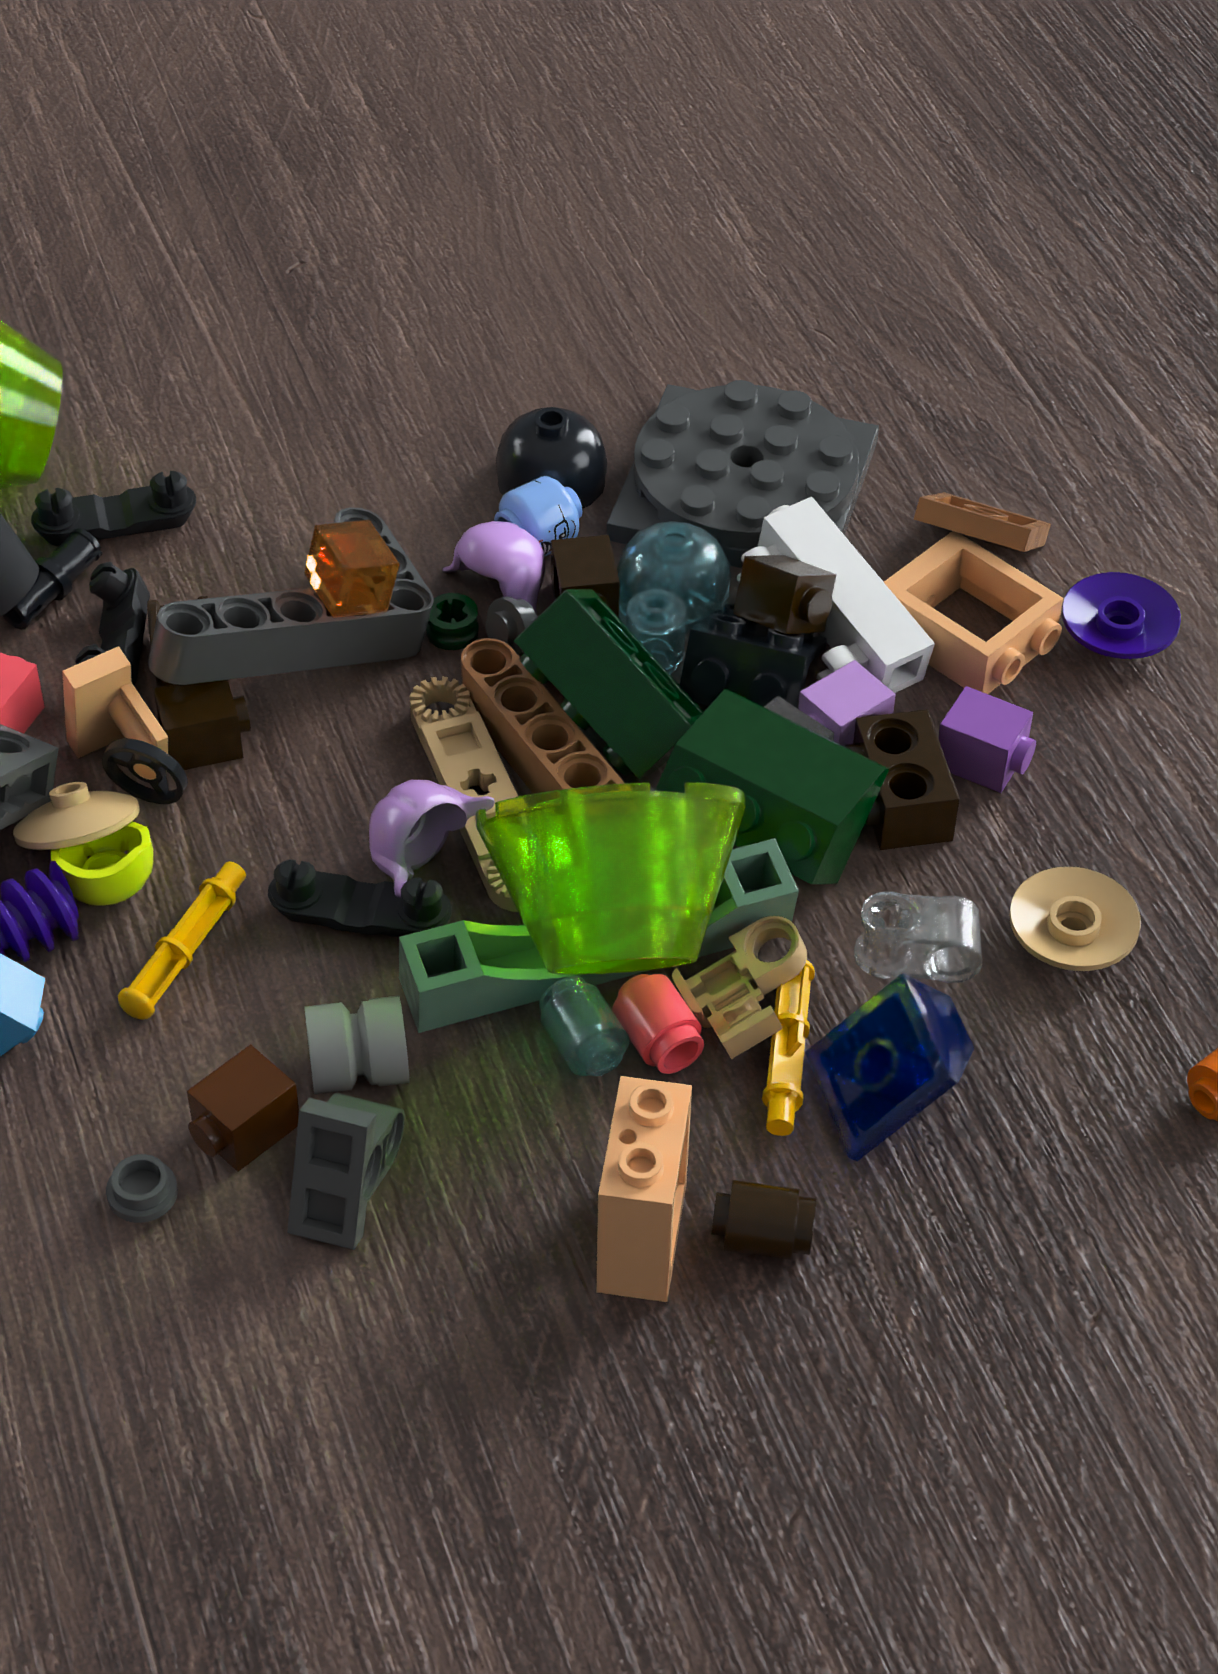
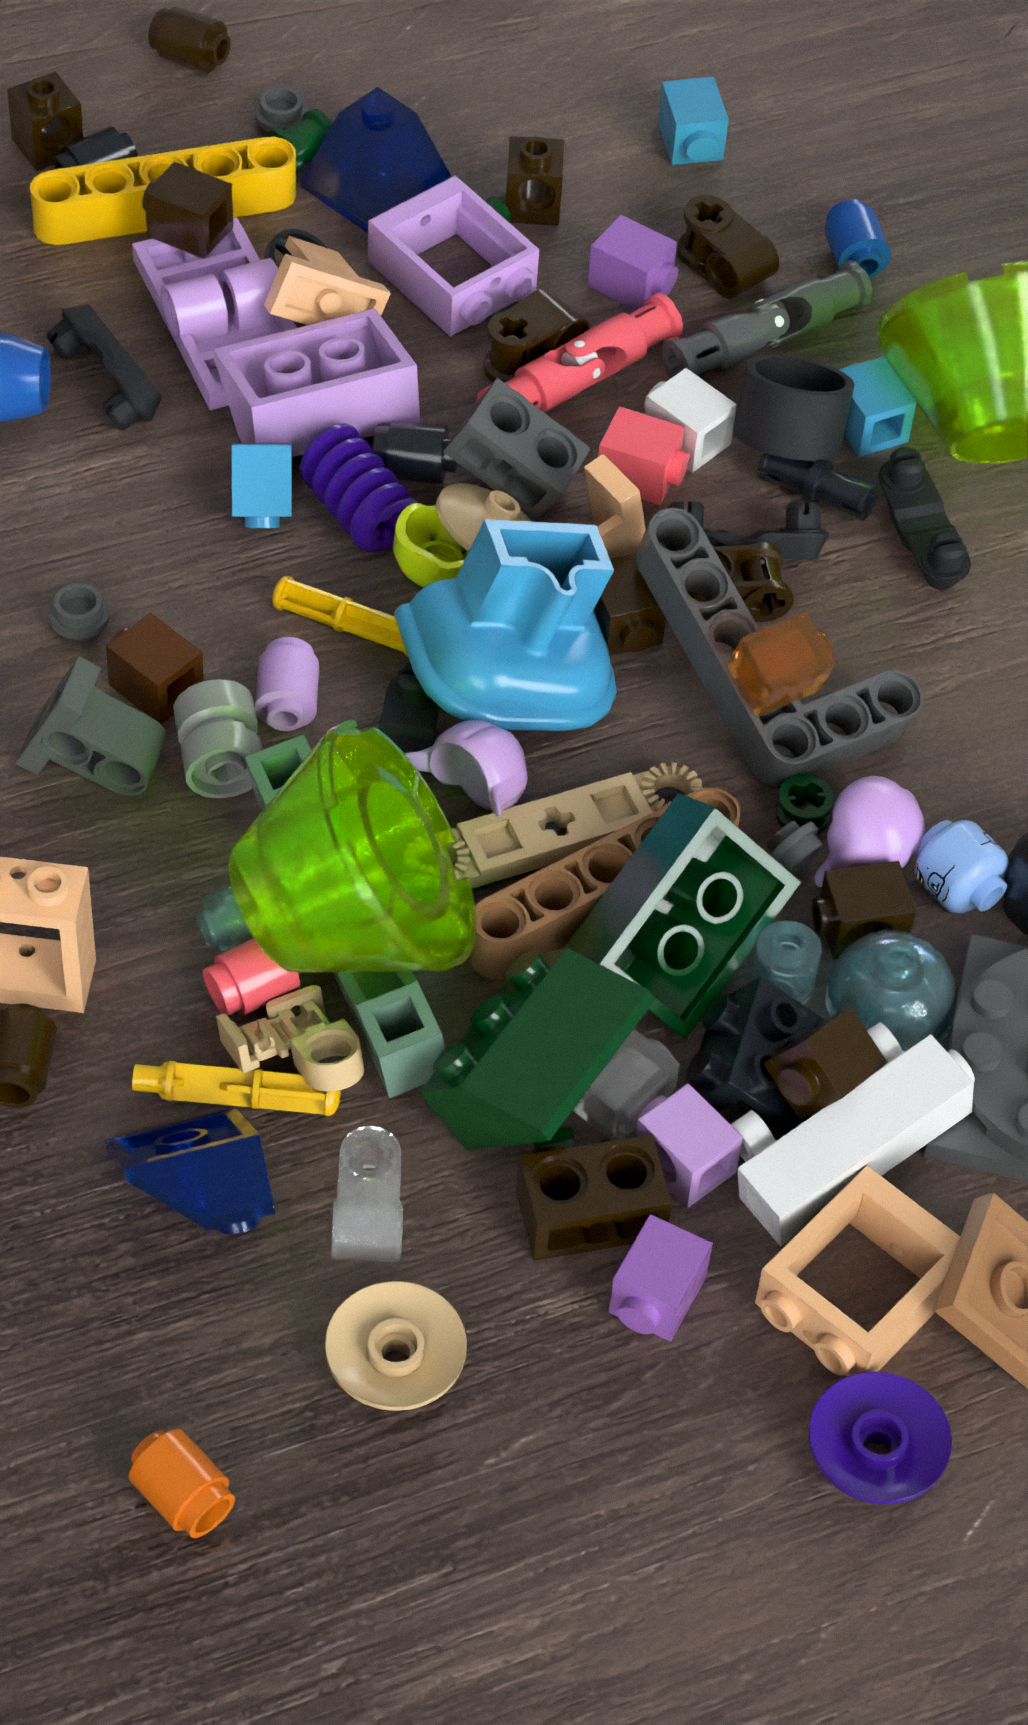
camera: 85 degrees right, 5 degrees up
(269, 782) = (517, 629): none -> dark azure piece
(276, 991) = (287, 684): none -> lavender brick

